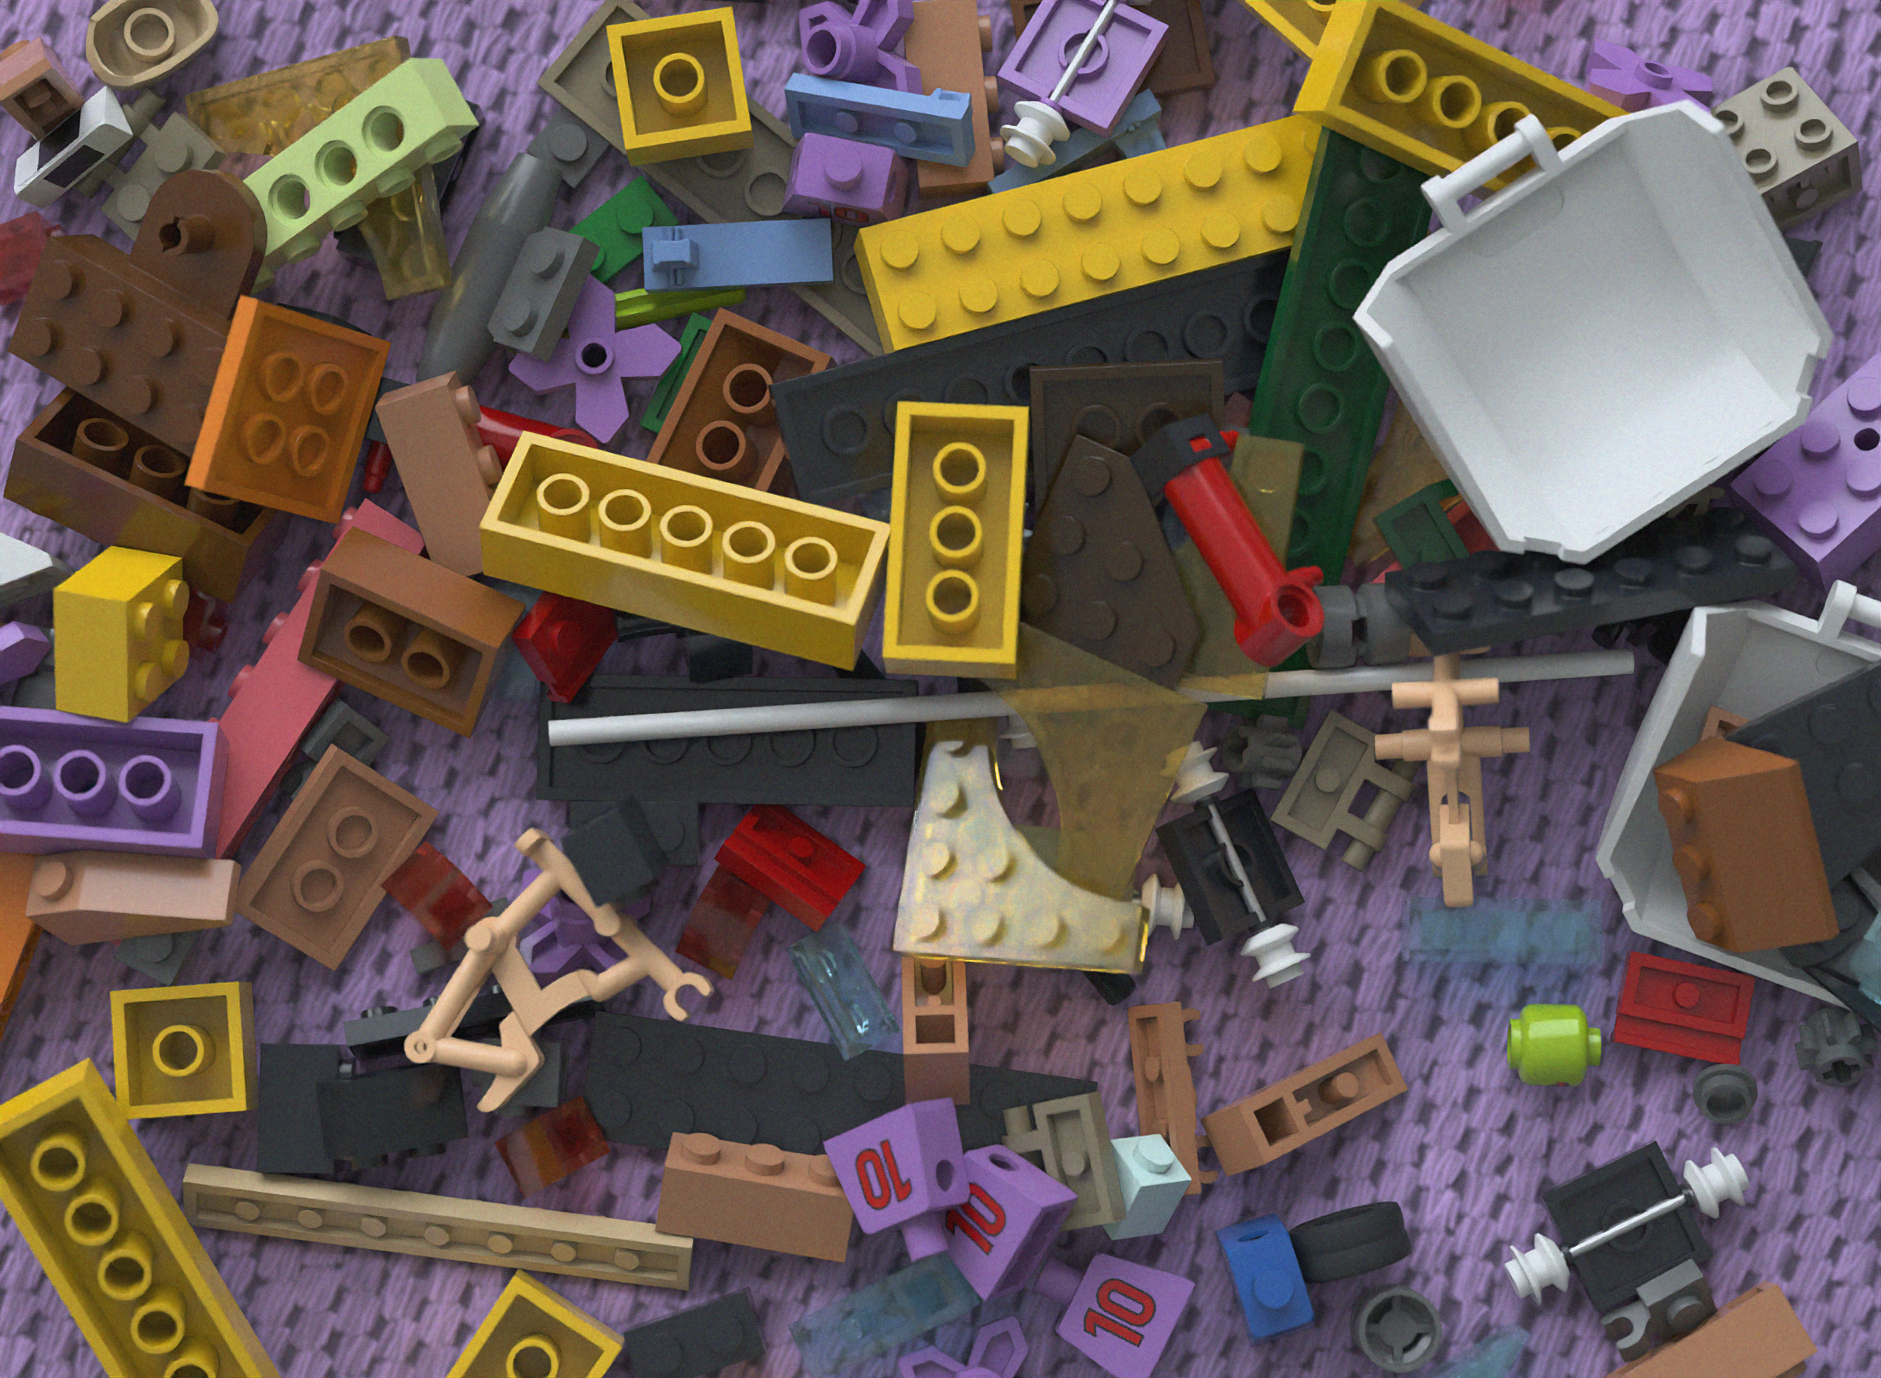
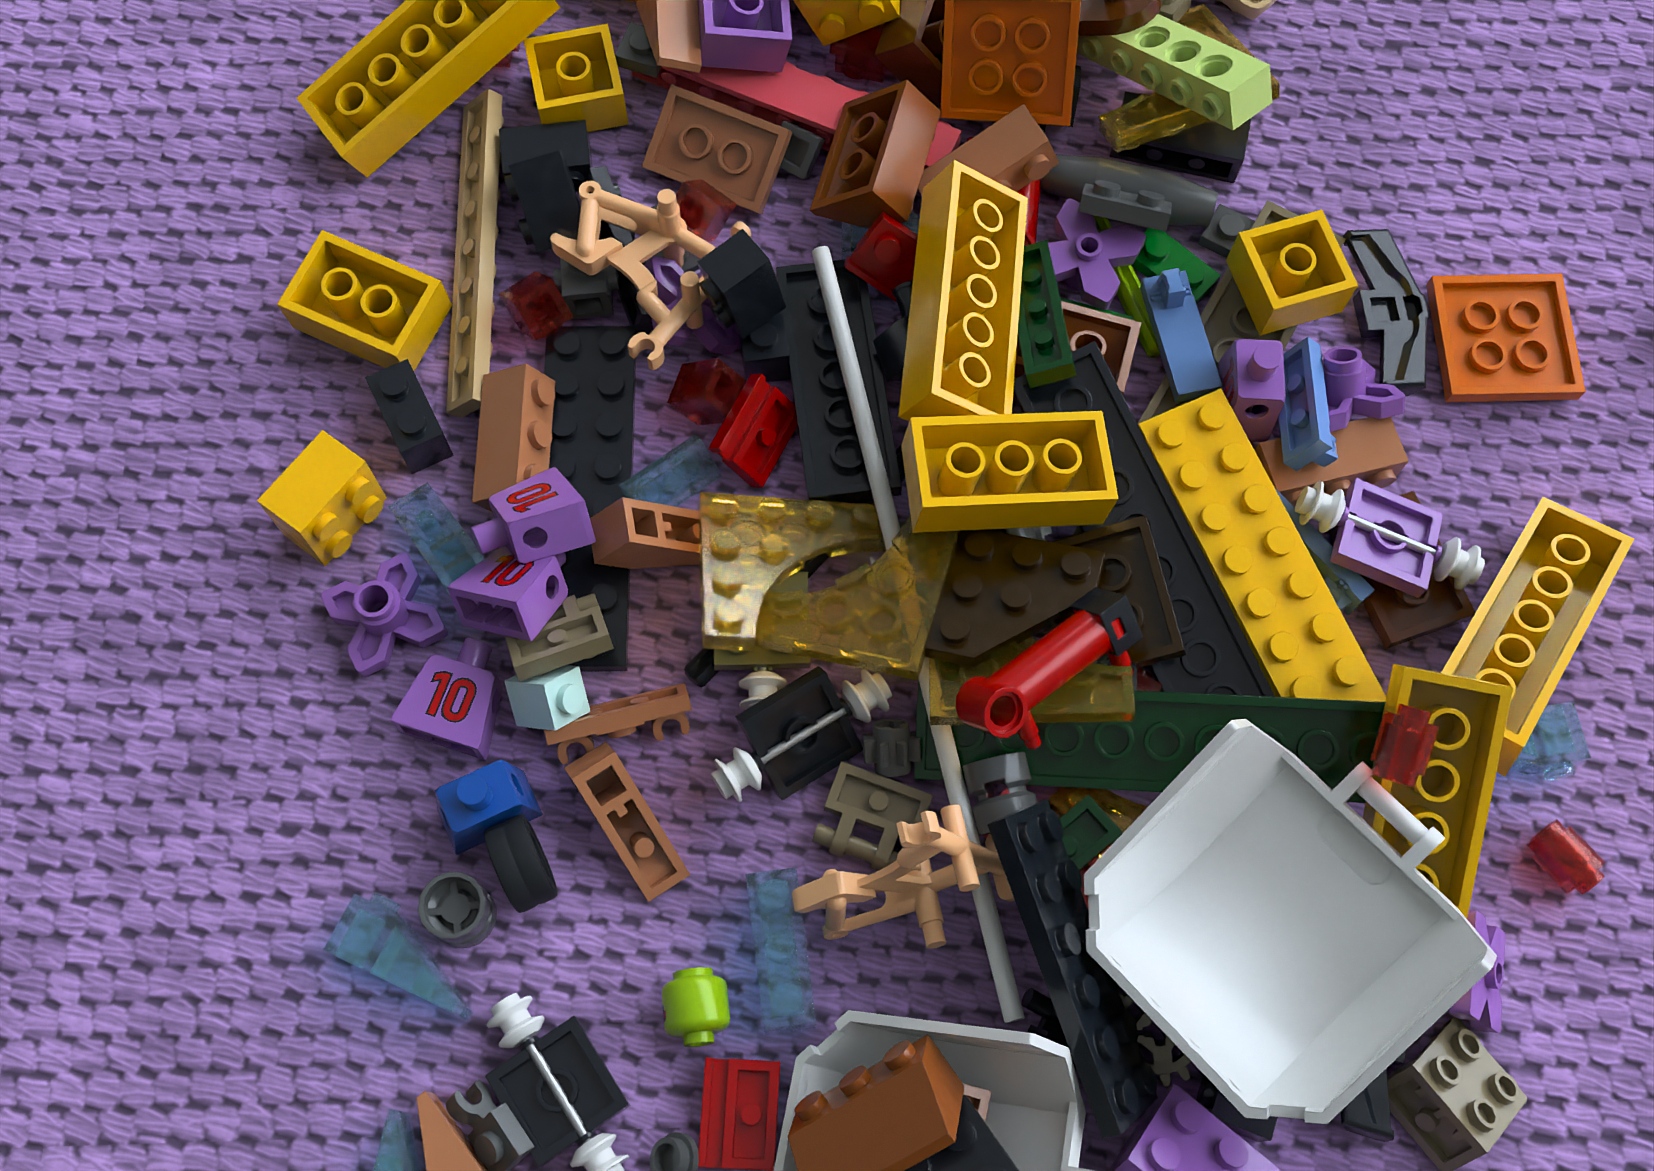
camera: 80 degrees right, 15 degrees down
(721, 448) = (1042, 321): none -> dark green plate
(1421, 137) = (1404, 745): none -> clear red brick

